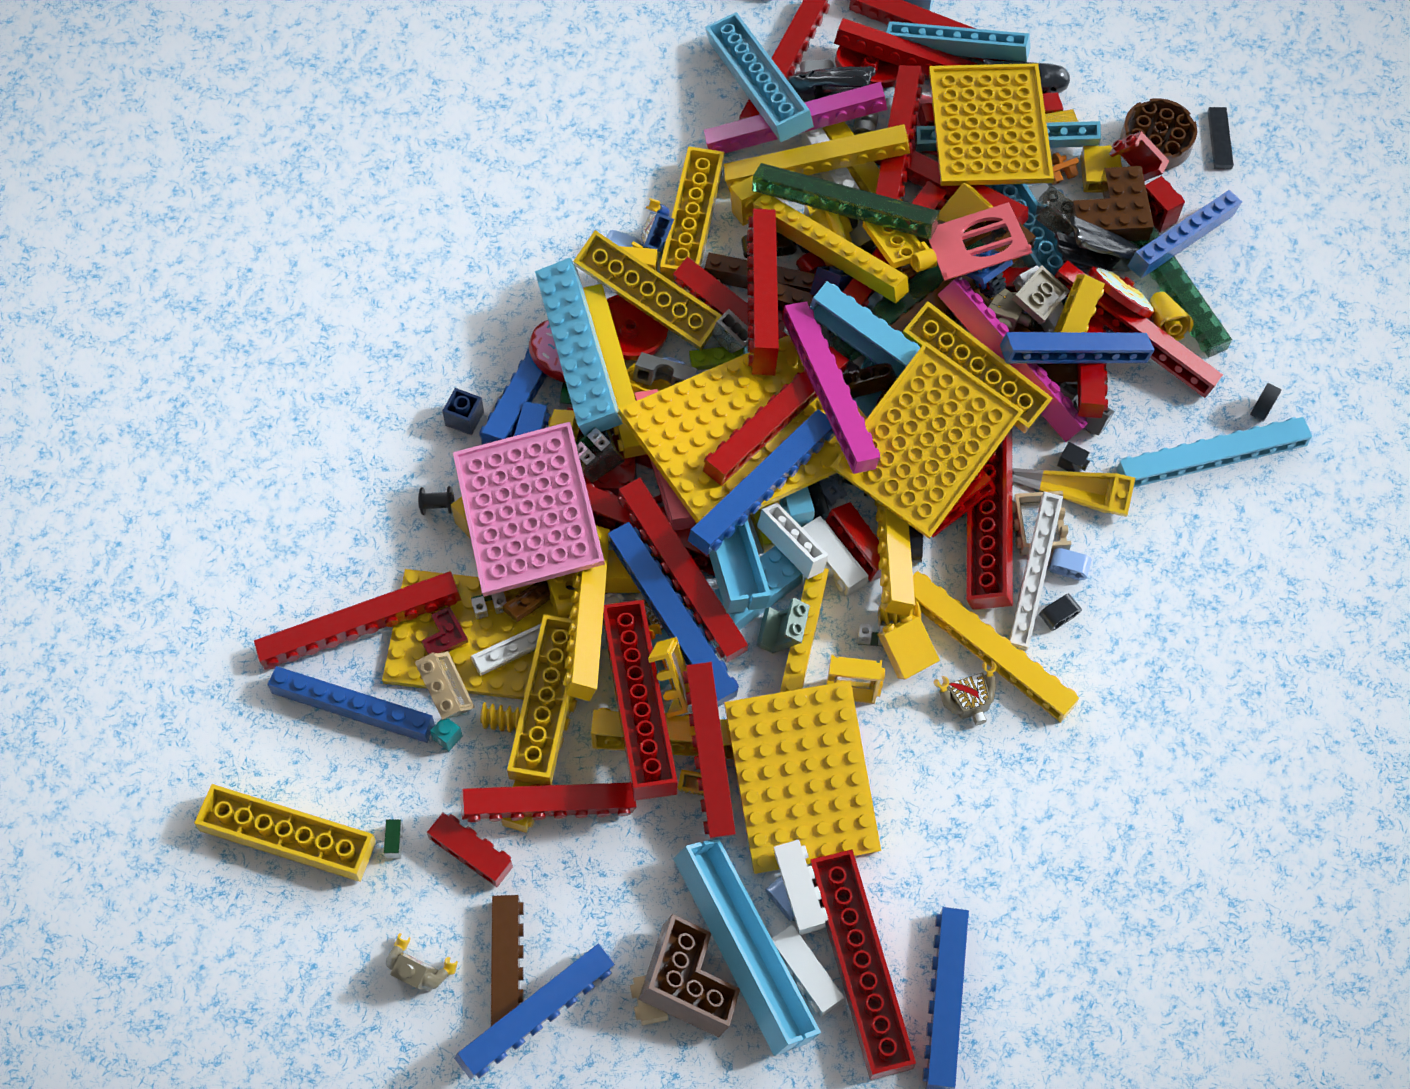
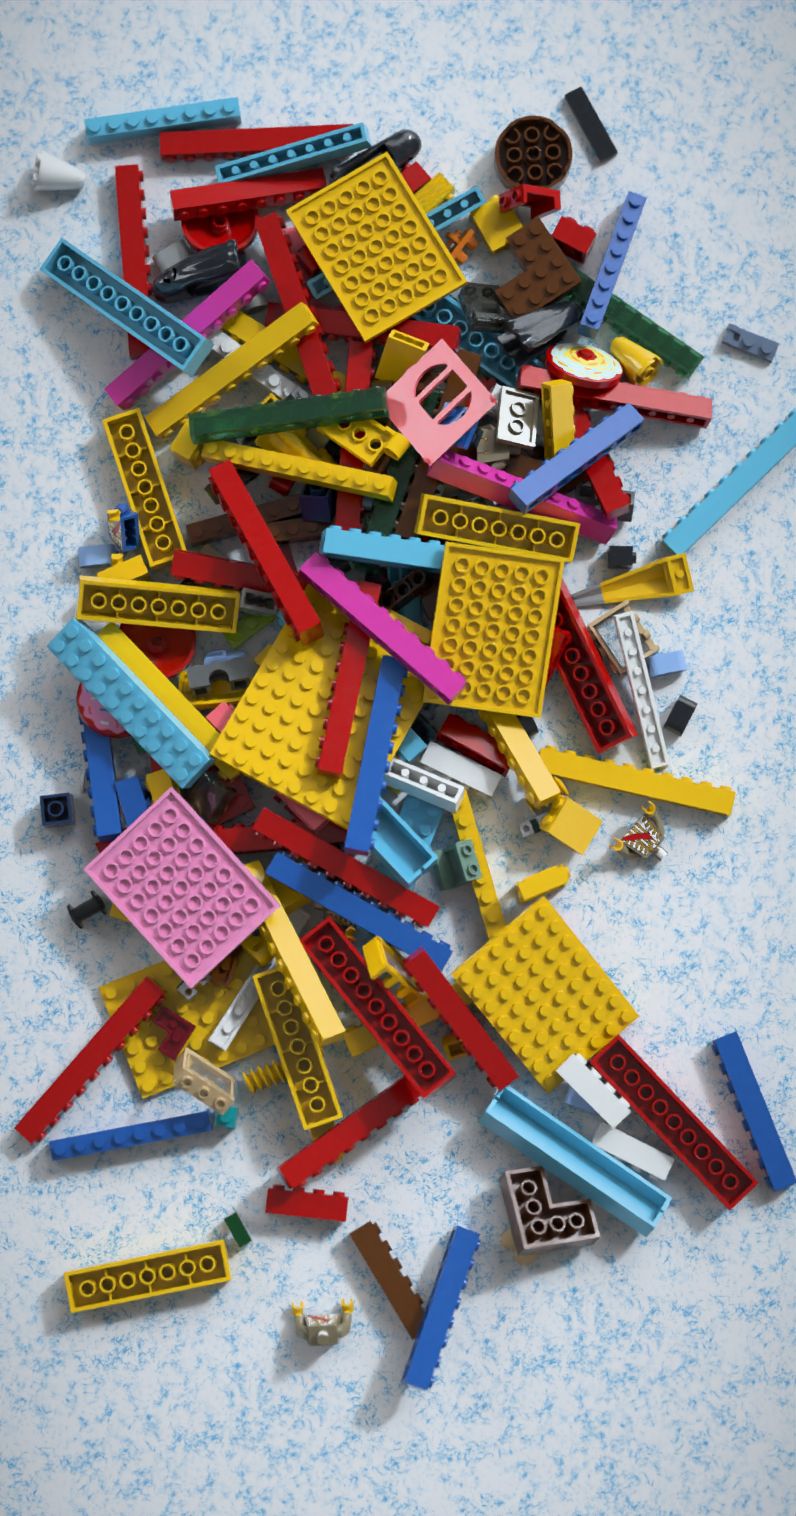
camera: 25 degrees left, 20 degrees up
(583, 446) = (202, 787): flat silver piece -> none
(1265, 402) = (762, 407): black tyre -> none
(1278, 354) = (750, 343): none -> sand blue plate

